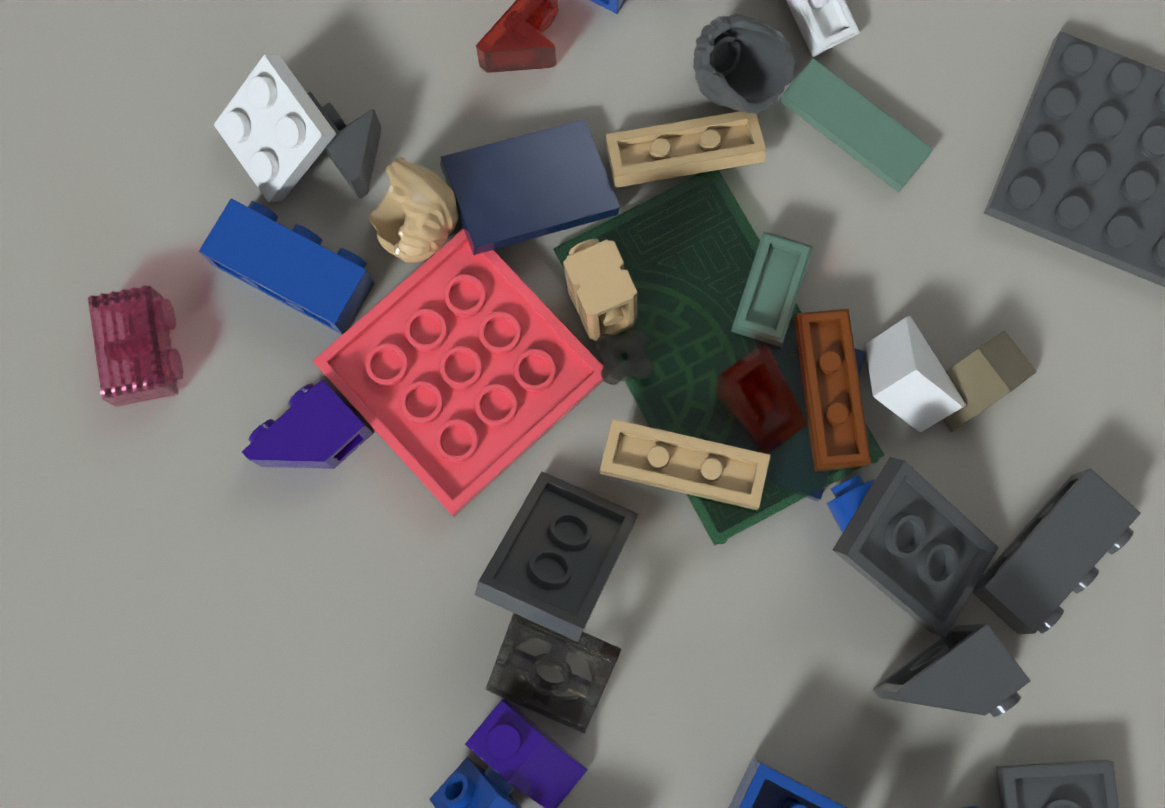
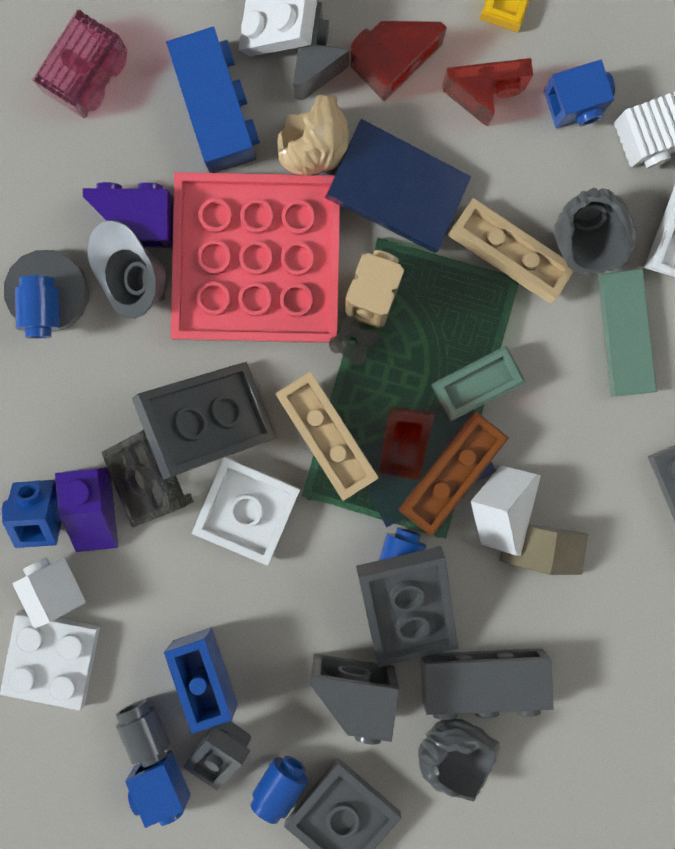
camera: 45 degrees right, 10 degrees up
(289, 586) = (67, 276): none -> dark grey tile
(298, 603) = (37, 306): none -> blue brick
(349, 490) = (125, 269): none -> dark grey piece
(413, 78) = (394, 52): none -> clear red slope
(677, 610) = (246, 511): none -> white plate
(1103, 648) = (457, 758): none -> dark grey hair

